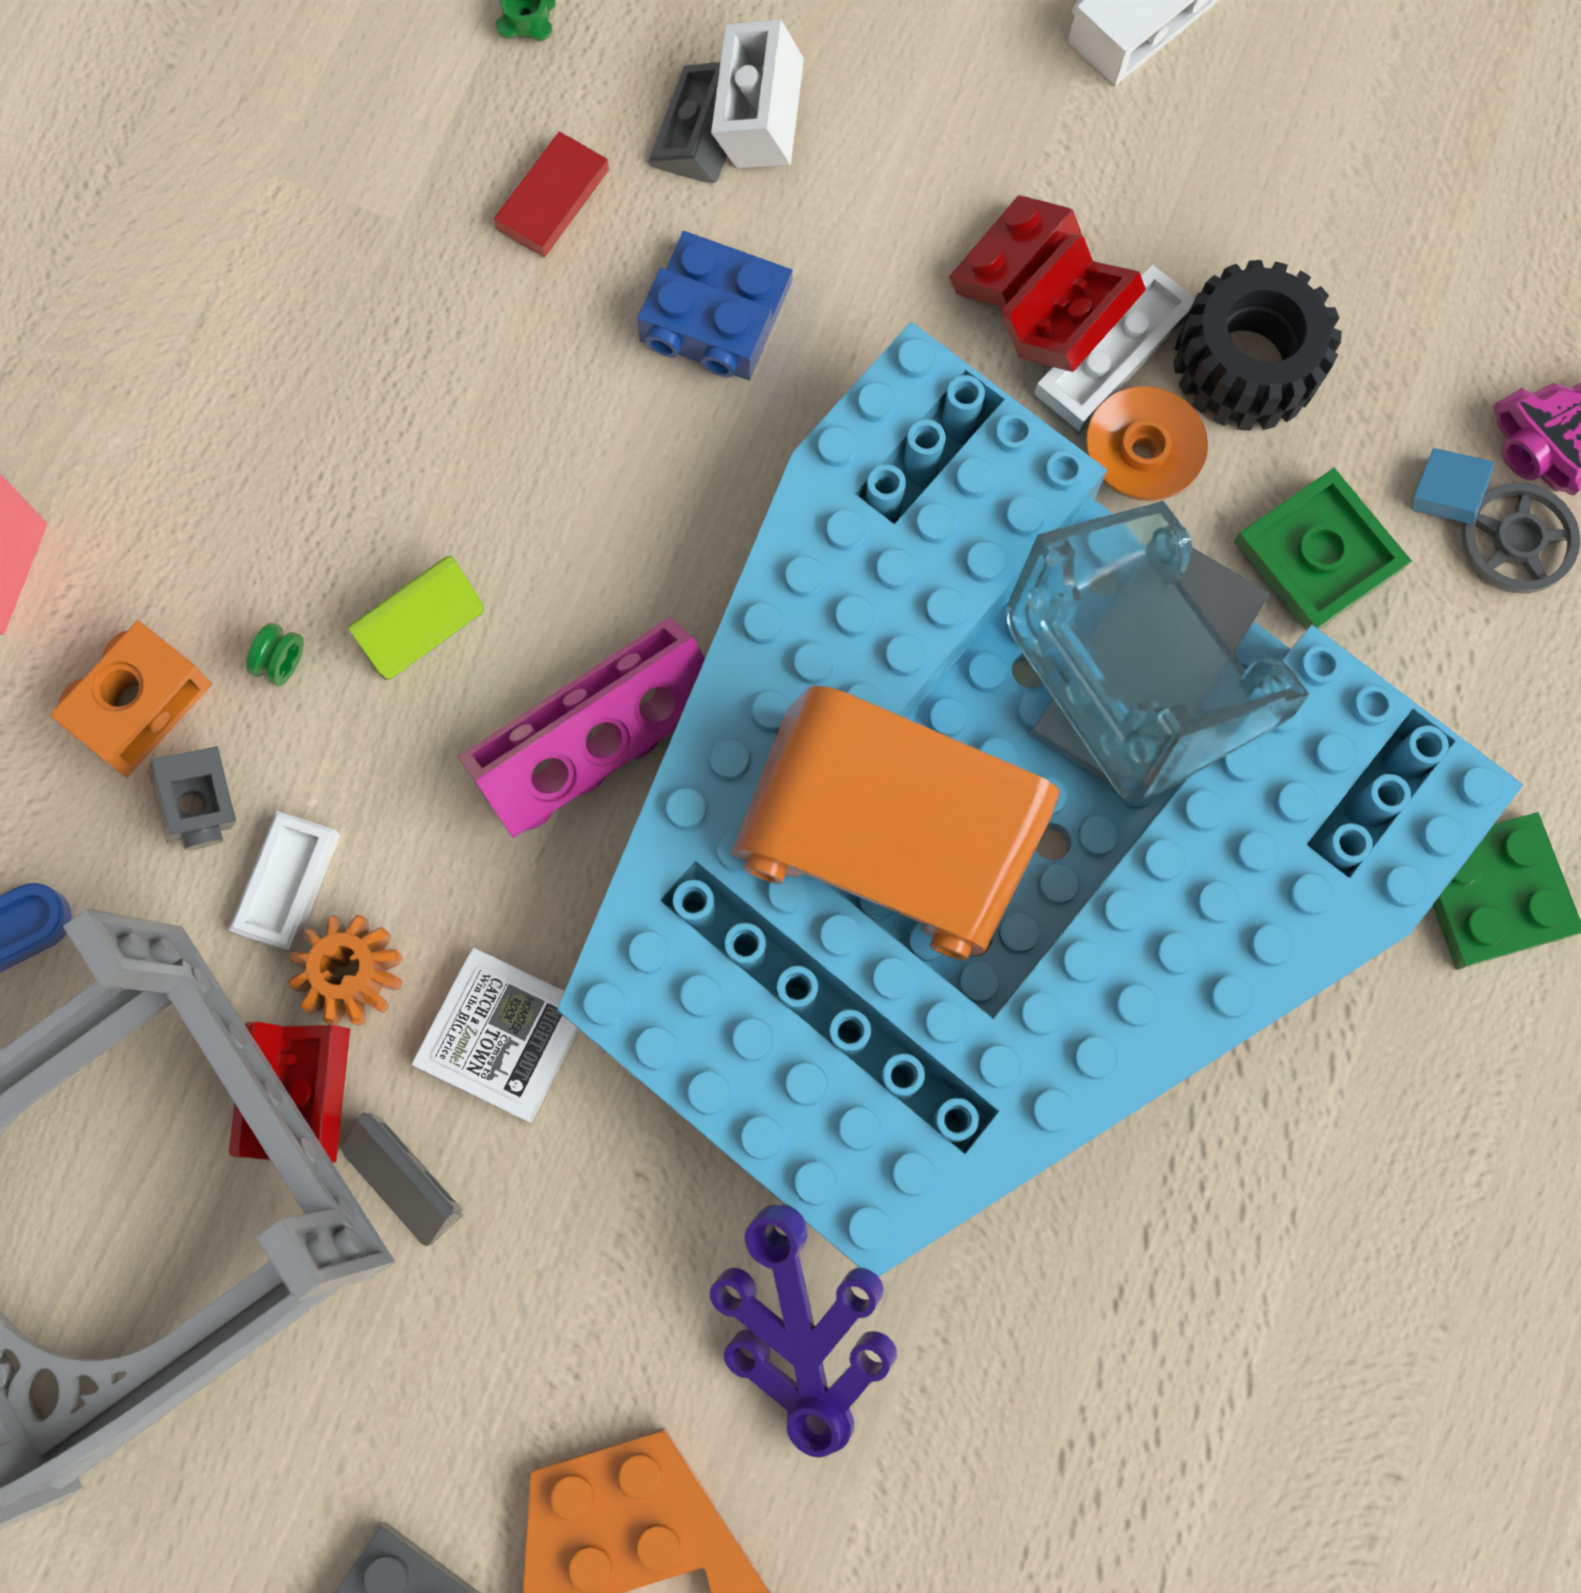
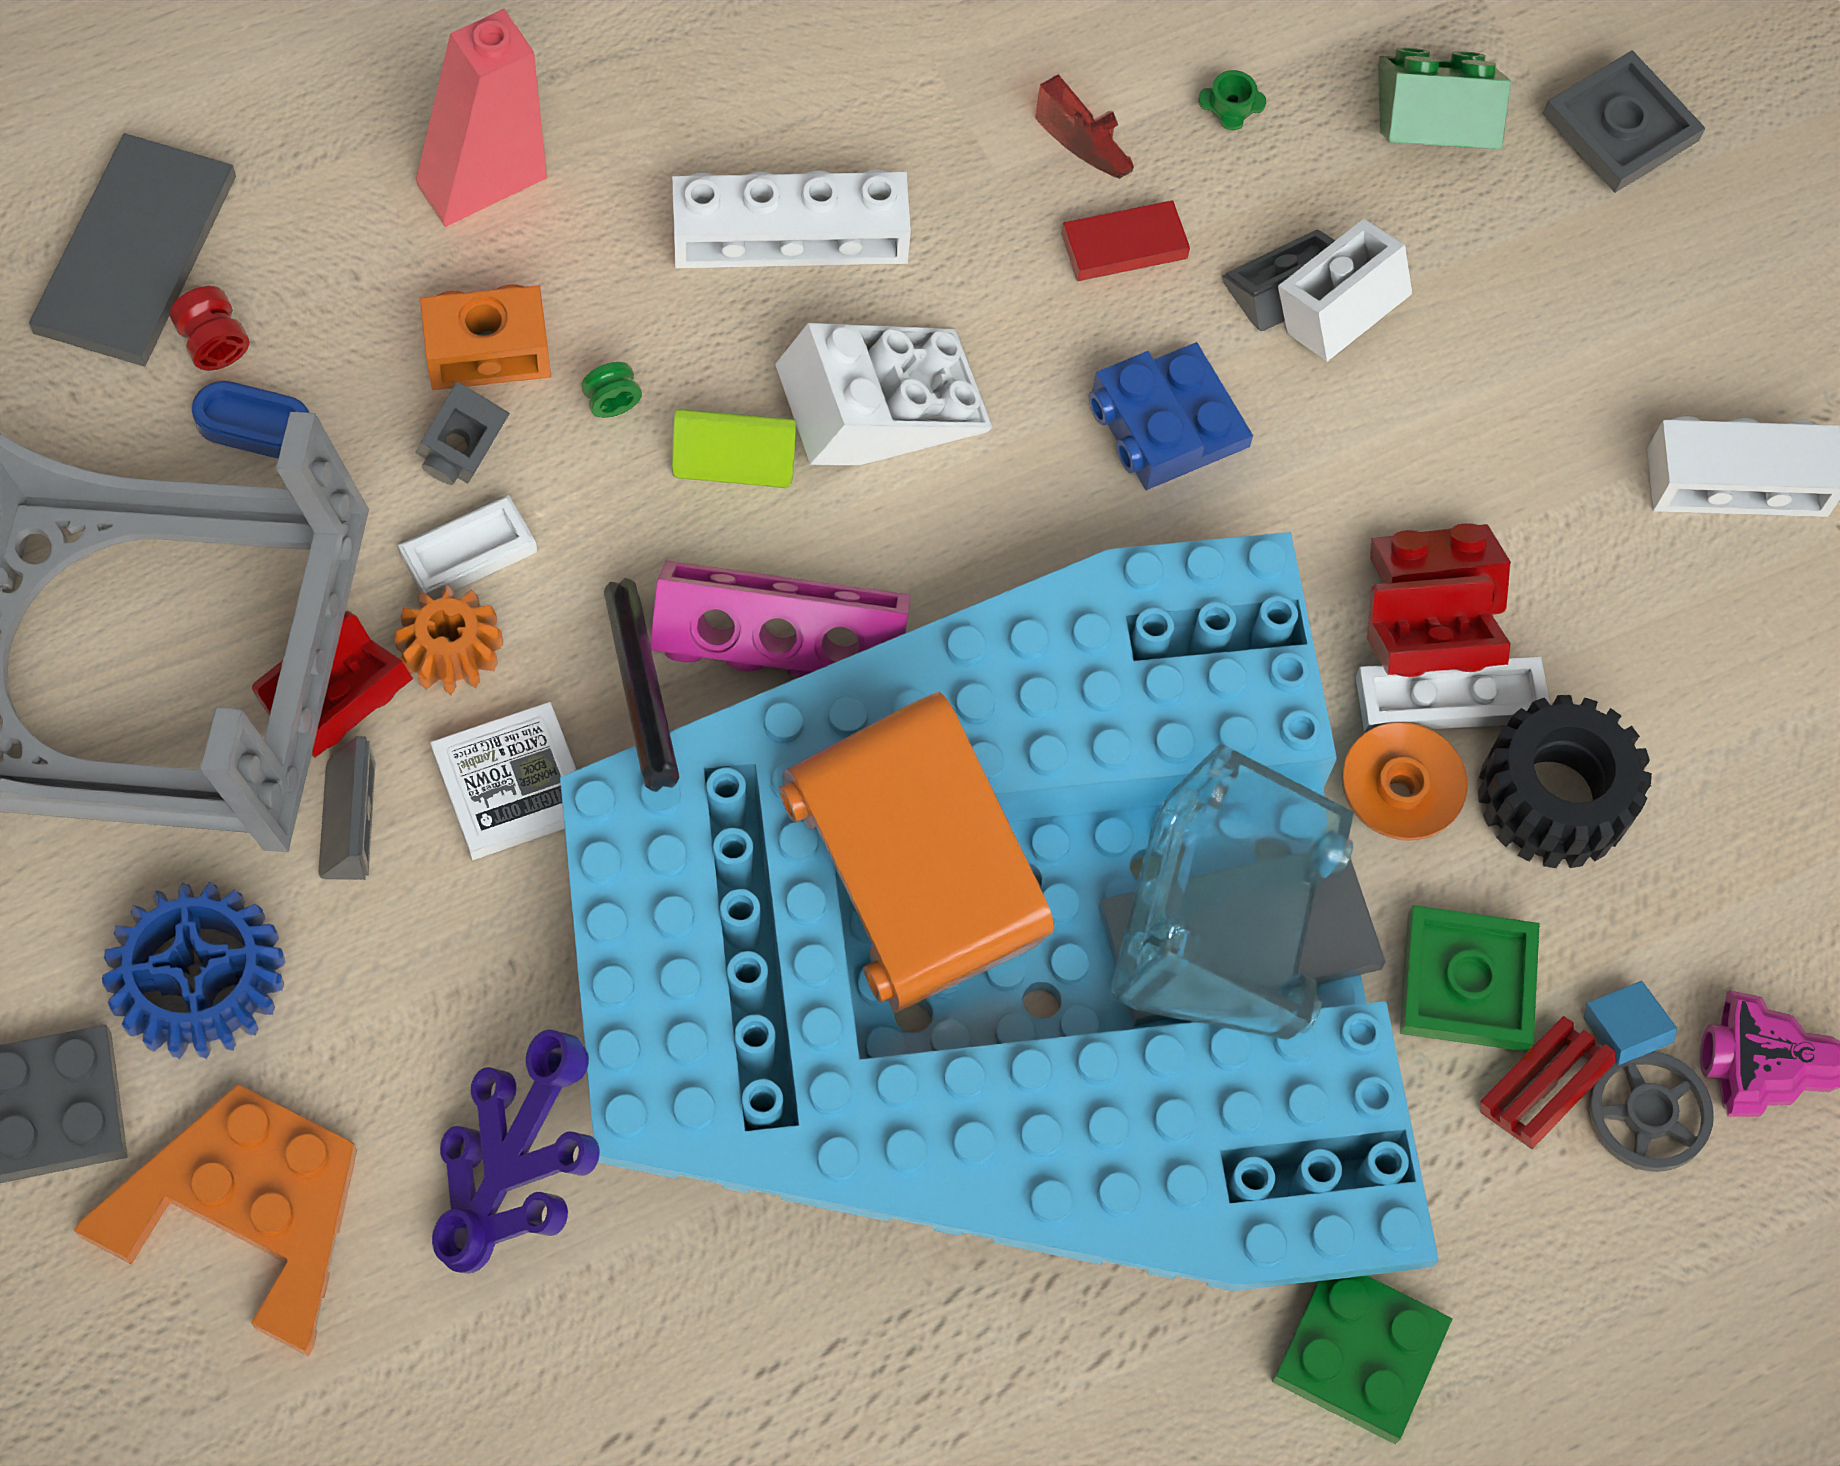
camera: 40 degrees right, 10 degrees down
(281, 393) = (791, 219): none -> white brick
(383, 1400) = (140, 971): none -> blue gear
(433, 133) = (1075, 128): none -> clear red slope
(483, 475) = (879, 391): none -> white slope
(545, 878) = (641, 686): none -> black axle
(1438, 533) = (1579, 1045): none -> red tile

